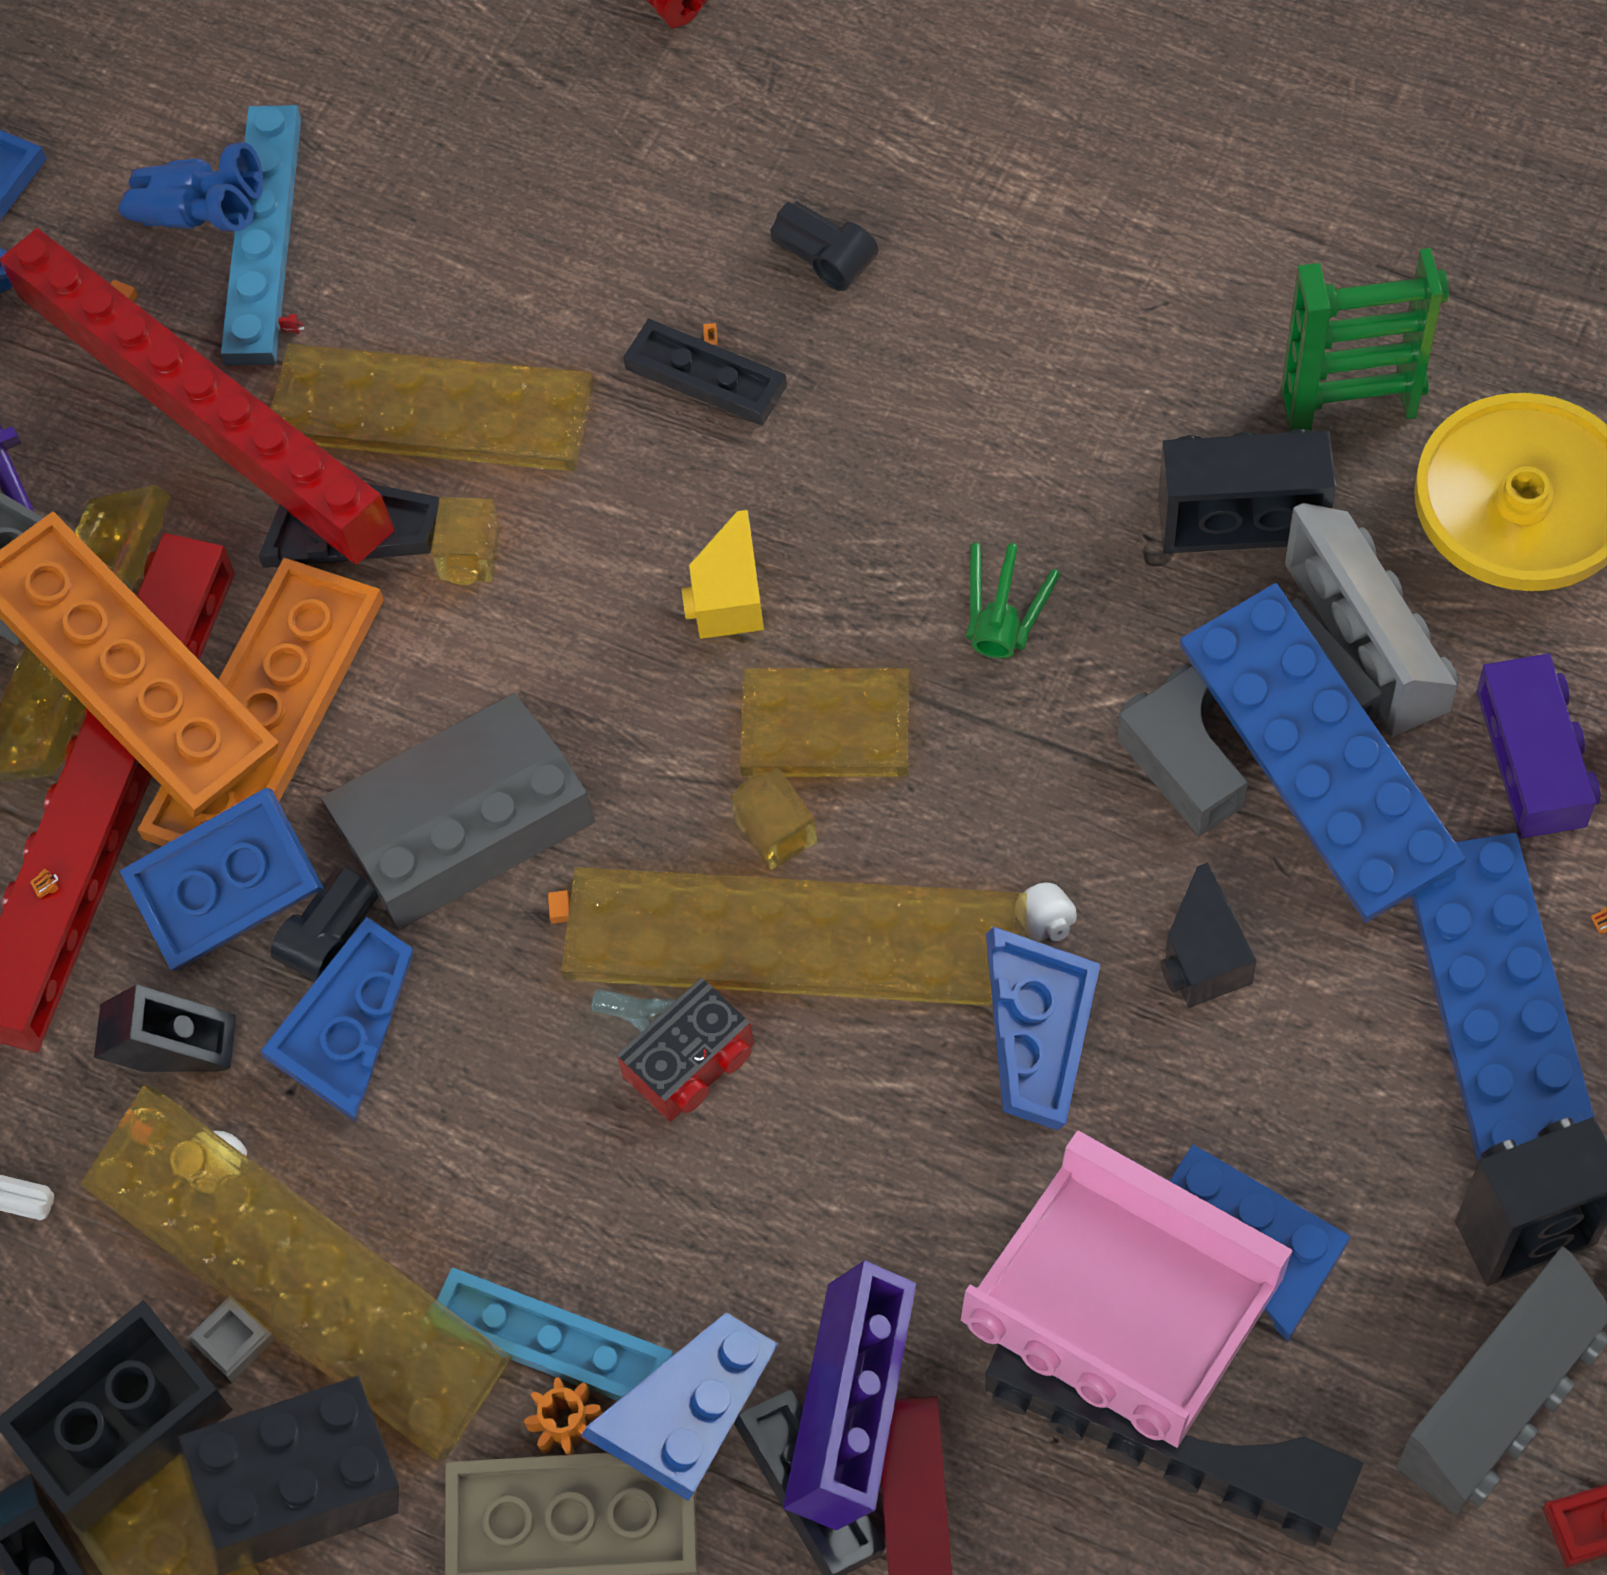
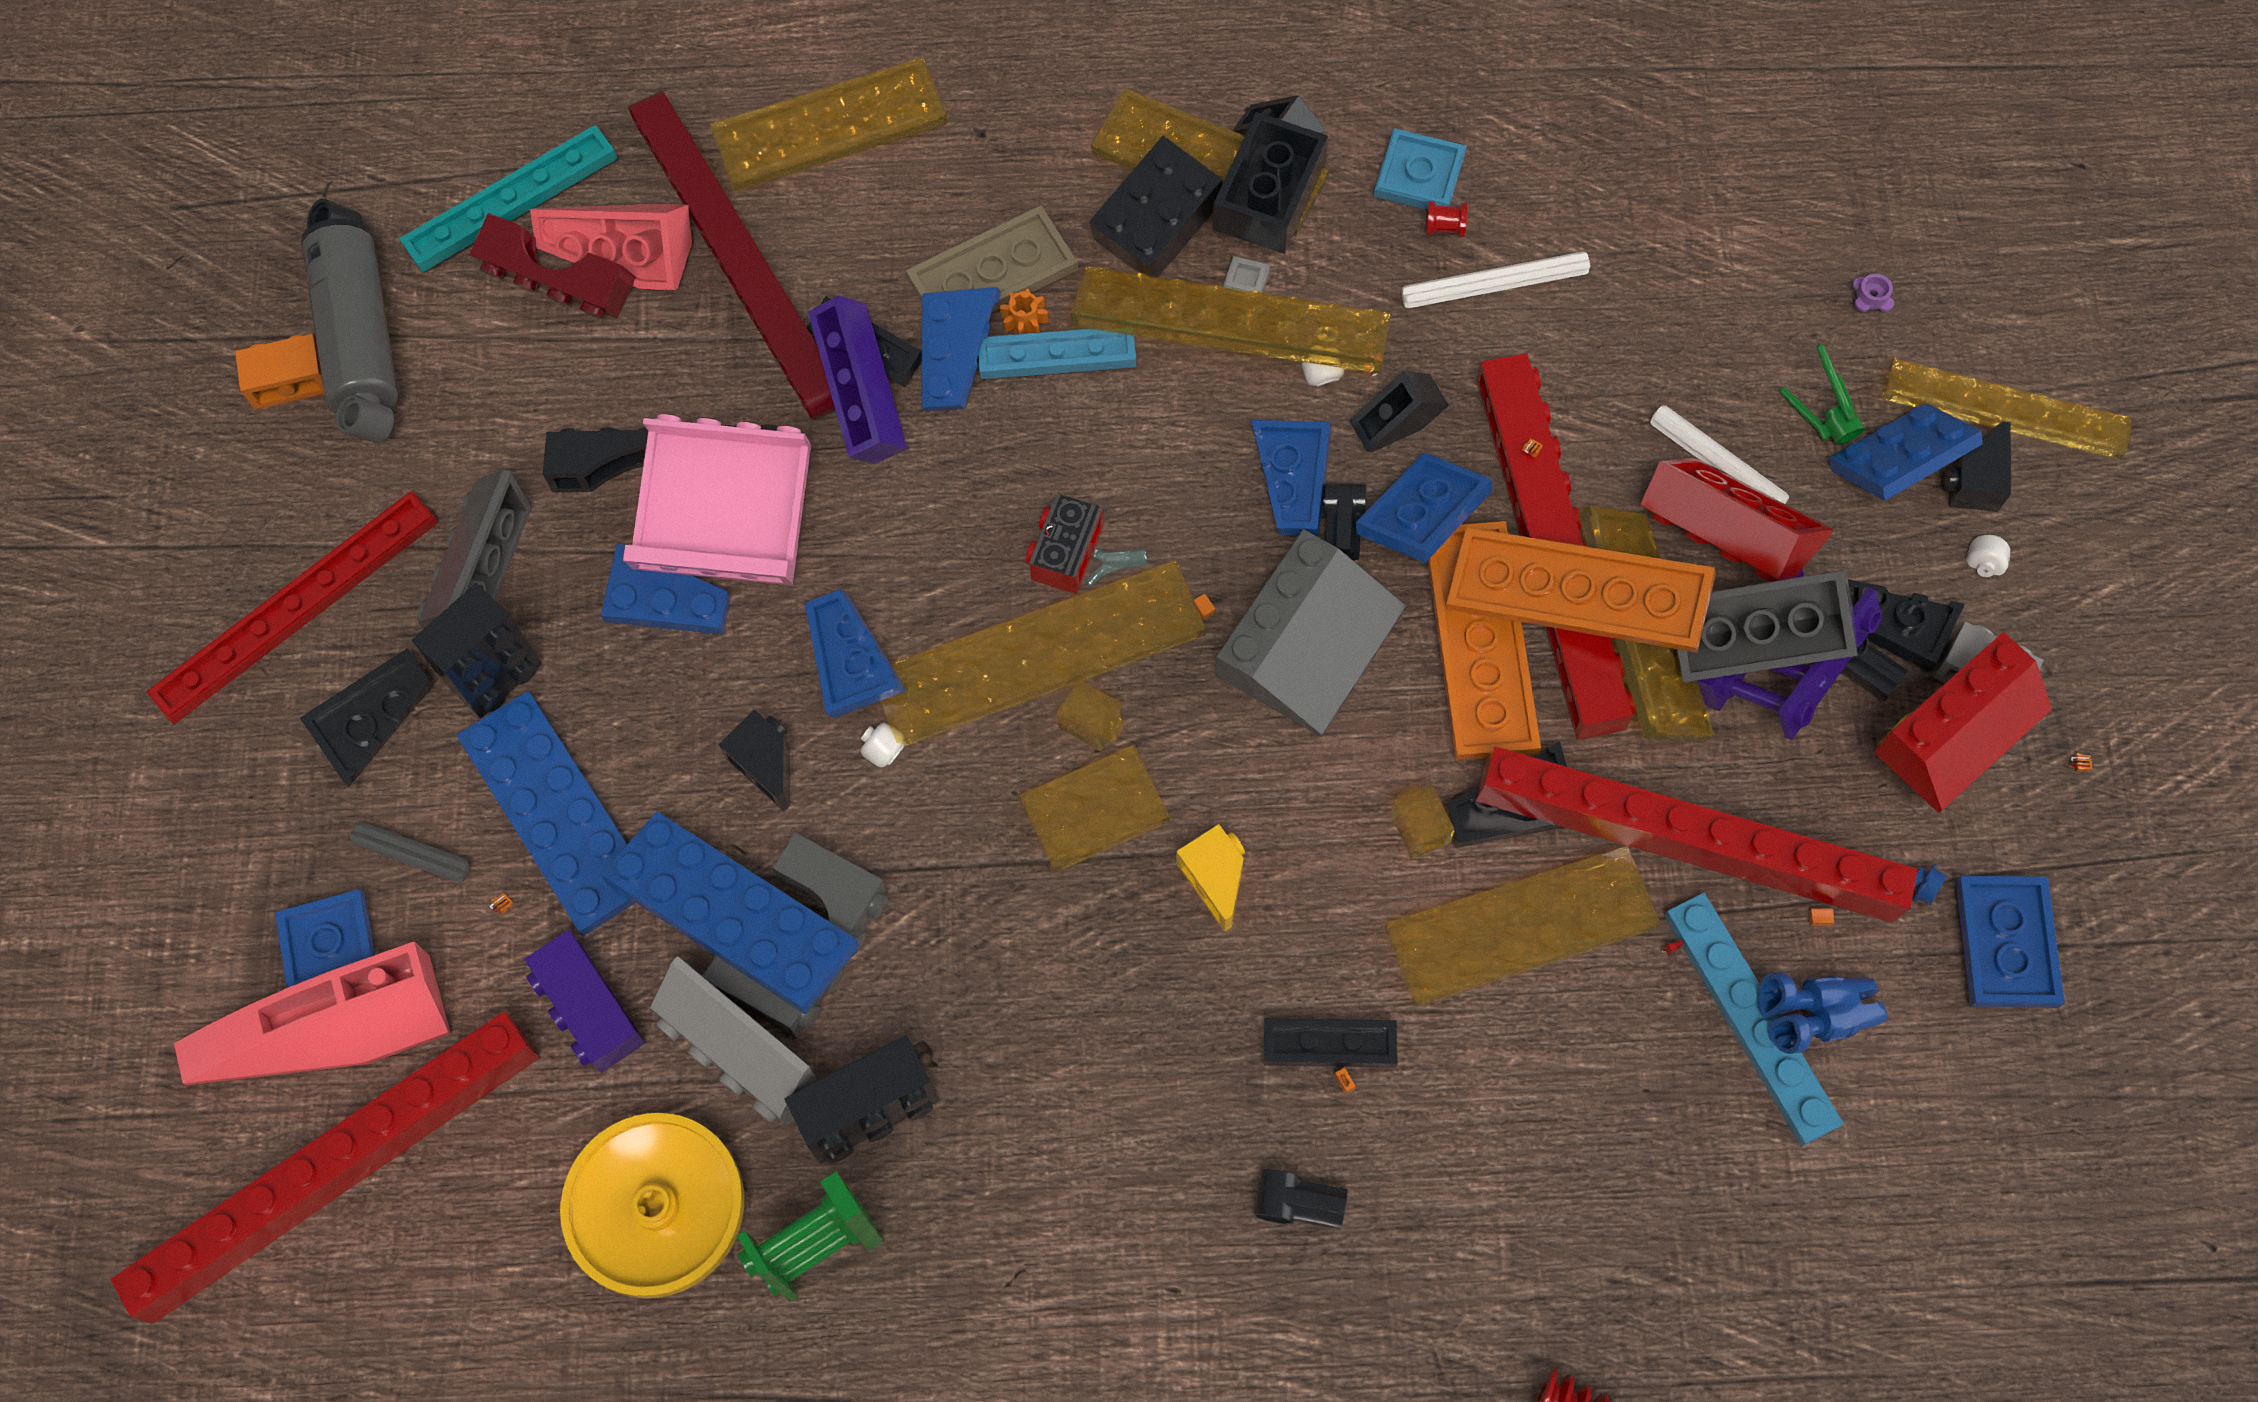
camera: 150 degrees right, 5 degrees up
(997, 629) = (1005, 928): green plant -> none

